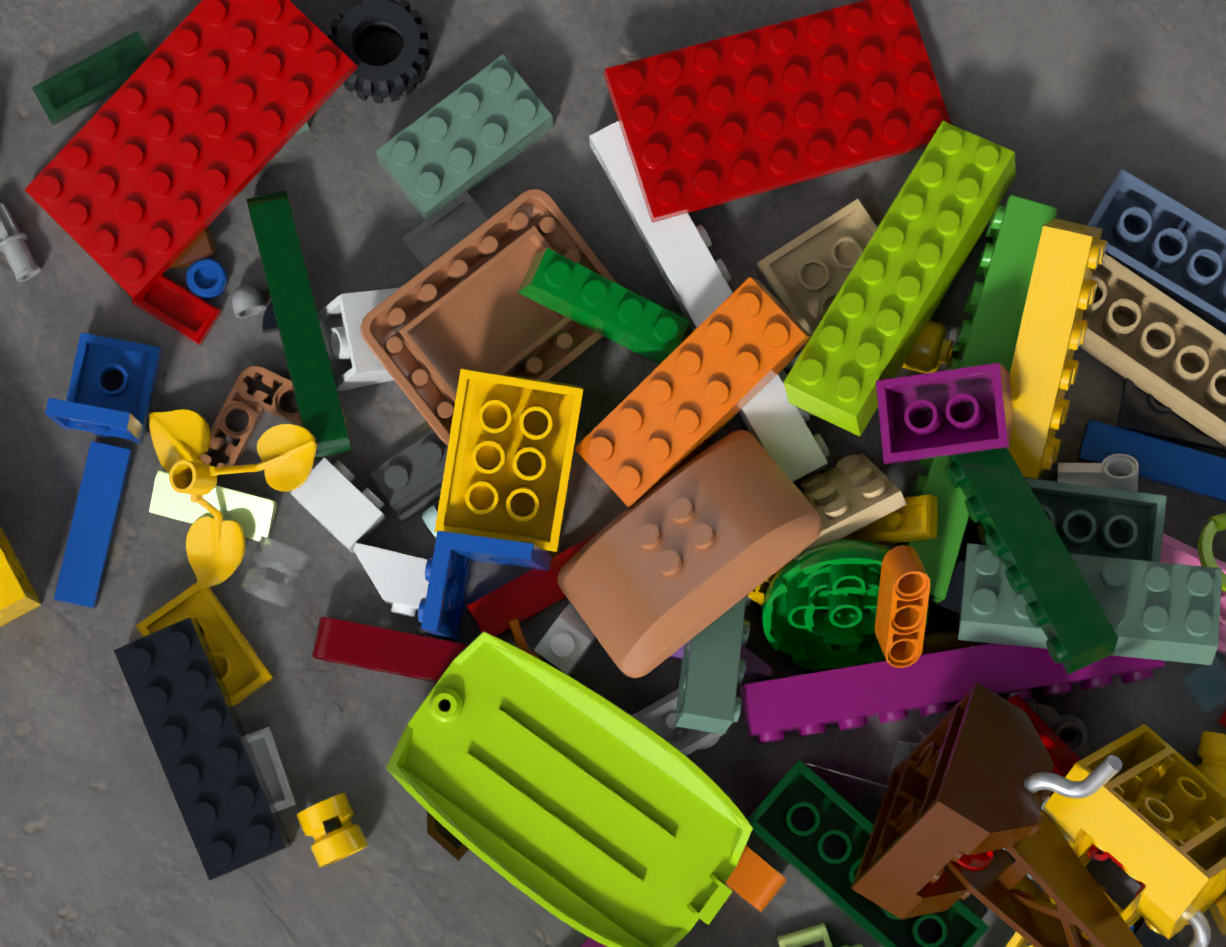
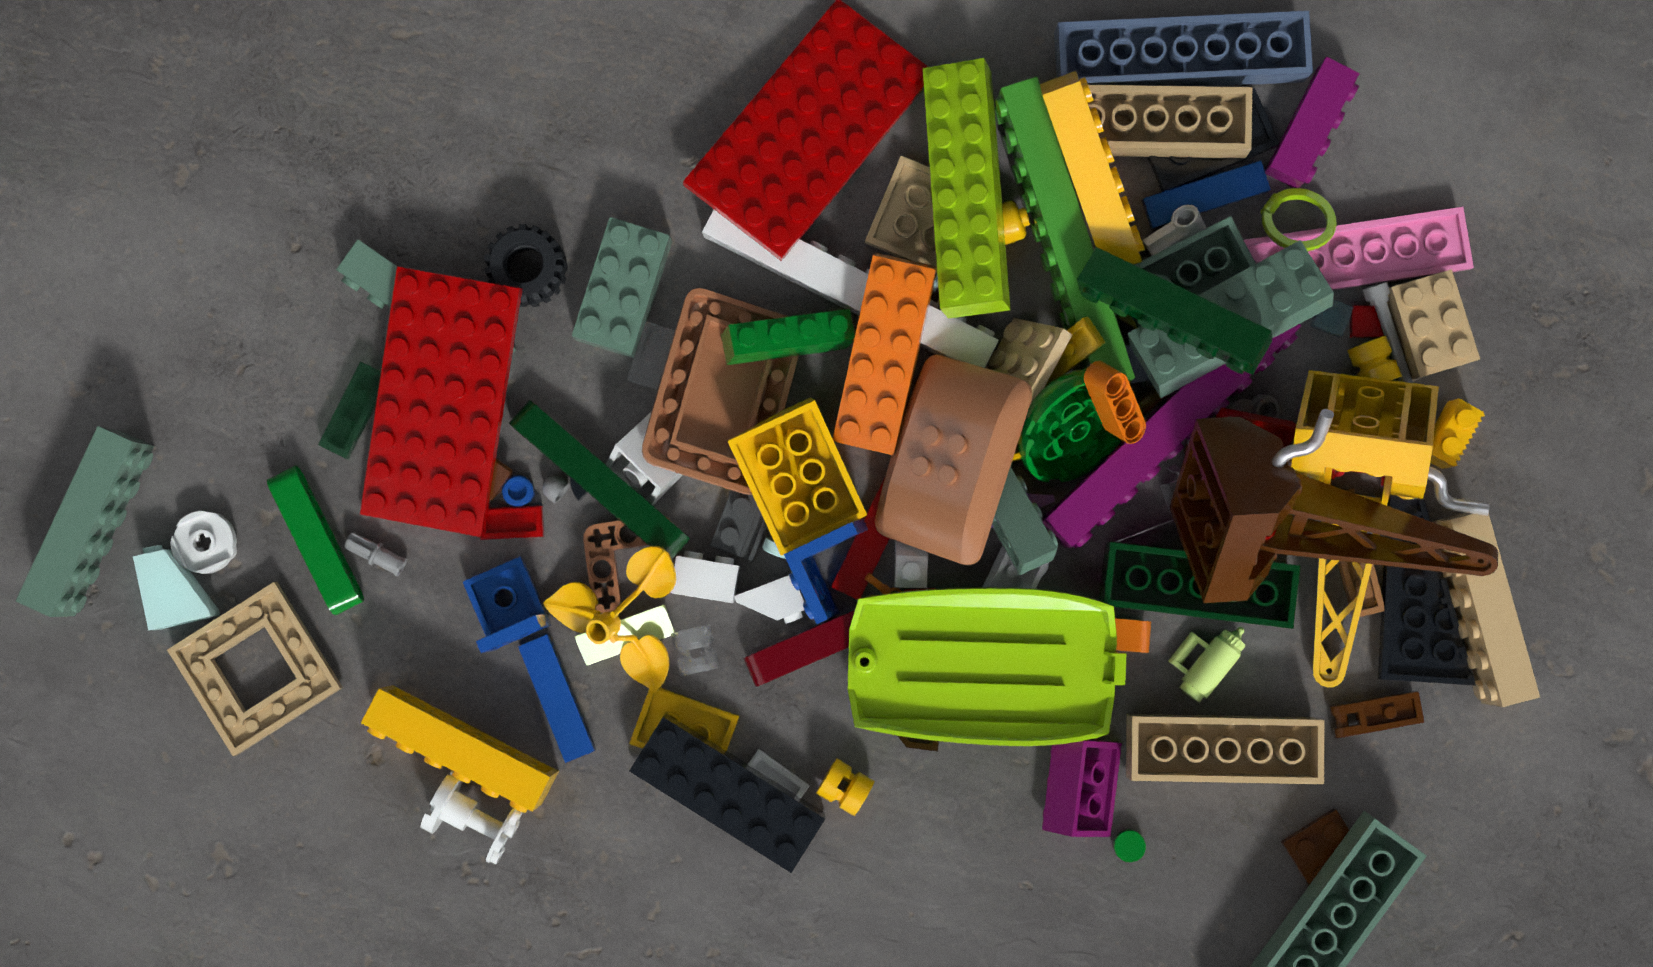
camera: 30 degrees left, 5 degrees up
(945, 413) = (1059, 259): magenta slope -> none

